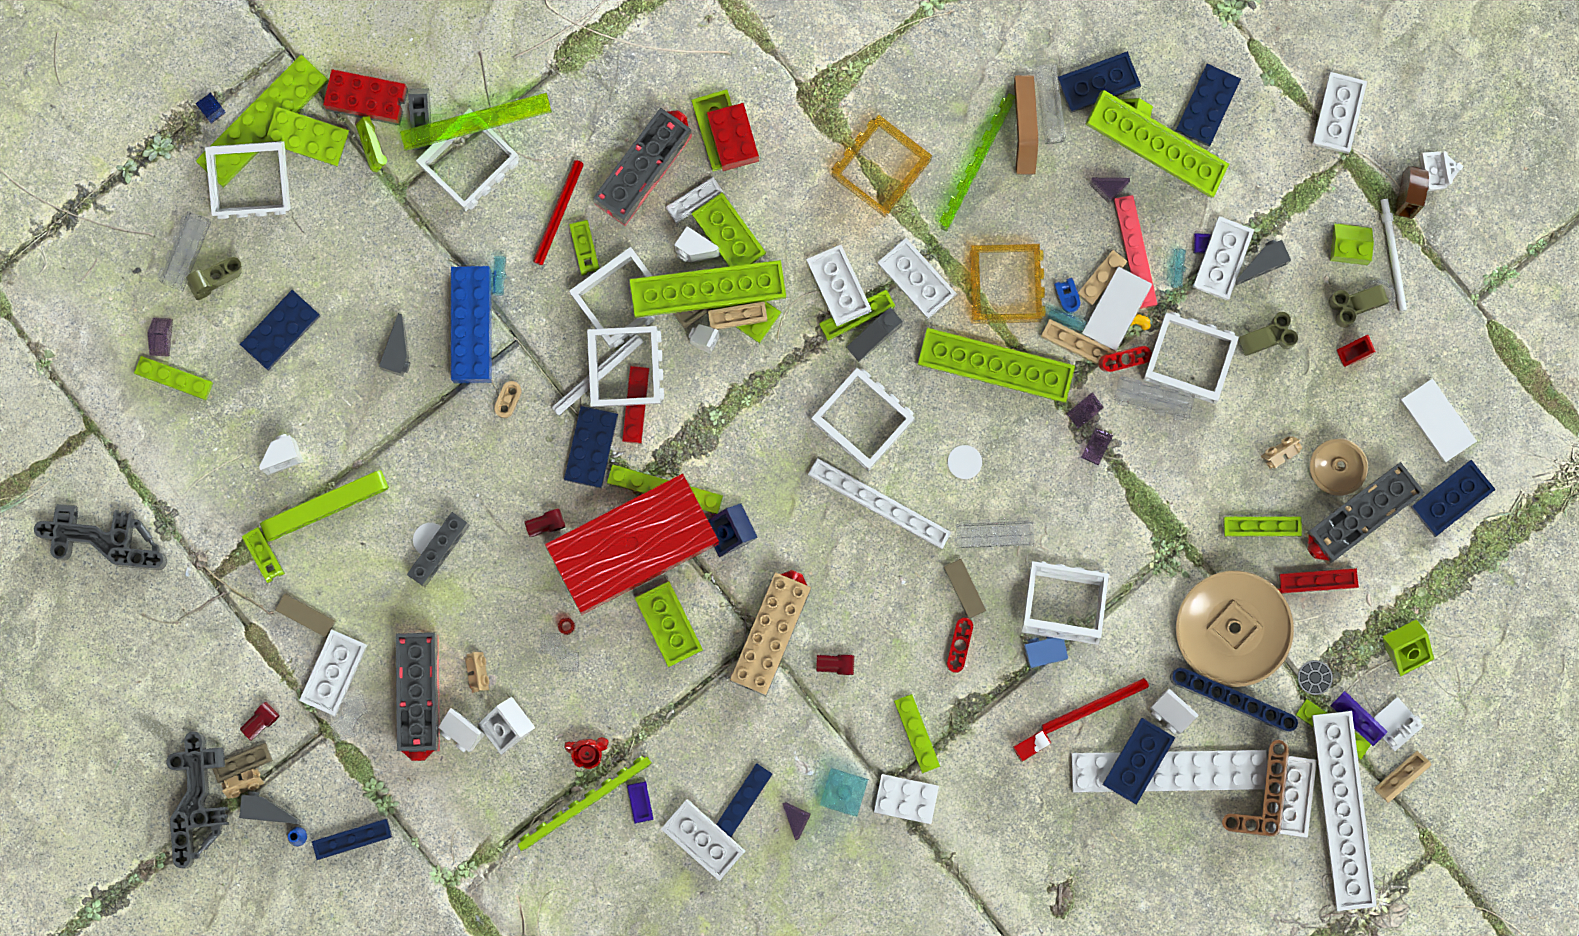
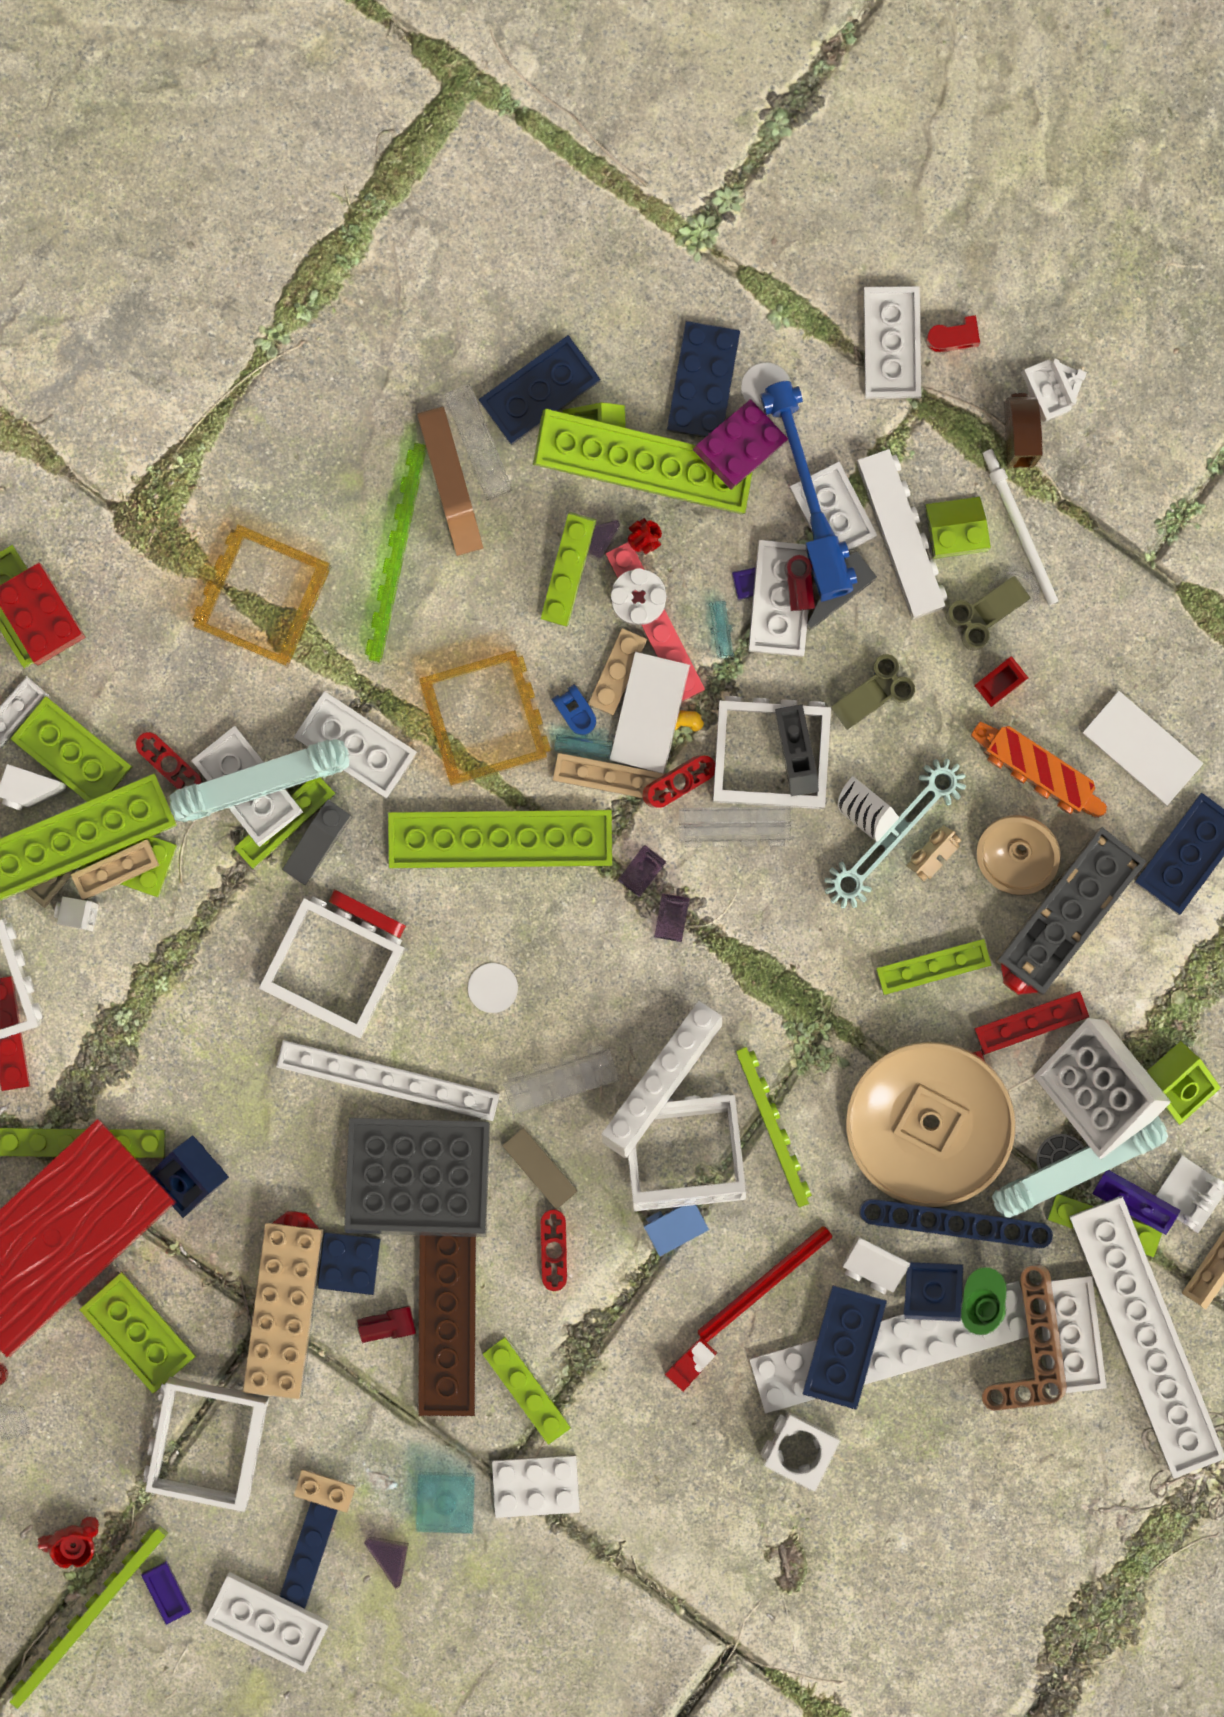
camera: 15 degrees left, 5 degrees up
(662, 701) = (157, 1446): none -> white window
(765, 762) = (324, 1491): none -> tan hinge
(787, 244) = (159, 744): none -> red beam
(806, 285) = (259, 780): none -> light aqua arm
(821, 617) = (349, 1263): none -> dark blue plate
(883, 571) = (417, 1177): none -> dark grey piece
(885, 642) = (447, 1325): none -> reddish brown plate
(893, 388) = (367, 913): none -> red beam
(1063, 549) = (662, 1079): none -> white brick
(1088, 201) = (568, 569): none -> lime plate
(1108, 820) = (806, 1475): none -> white brick
(1120, 226) = (640, 581): none -> white plate
(1127, 594) = (778, 1137): none -> lime plate
(1143, 194) = (644, 536): none -> red gear
(1207, 741) = (934, 1291): none -> dark blue plate
(1209, 358) = (797, 750): none -> dark grey slope
(1223, 151) = (740, 444): none -> magenta plate
(1239, 252) = (800, 587): none -> dark red piece
(1241, 754) = (984, 1301): none -> bright green piece
(1244, 409) = (866, 809): none -> white brick
(1248, 120) = (759, 378): none -> white sticker
(1259, 431) = (896, 832): none -> light aqua arm
(1262, 233) = (825, 552): none -> blue bar
(1272, 211) = (839, 506): none -> white plate
(1313, 238) = (901, 534): none -> white brick
(1327, 684) = (1073, 1170): none -> light aqua arm
(1355, 634) = (1101, 1087): none -> white slope
(1367, 415) = (1040, 768): none -> orange hinge
(1381, 120) = (954, 338): none -> red leg

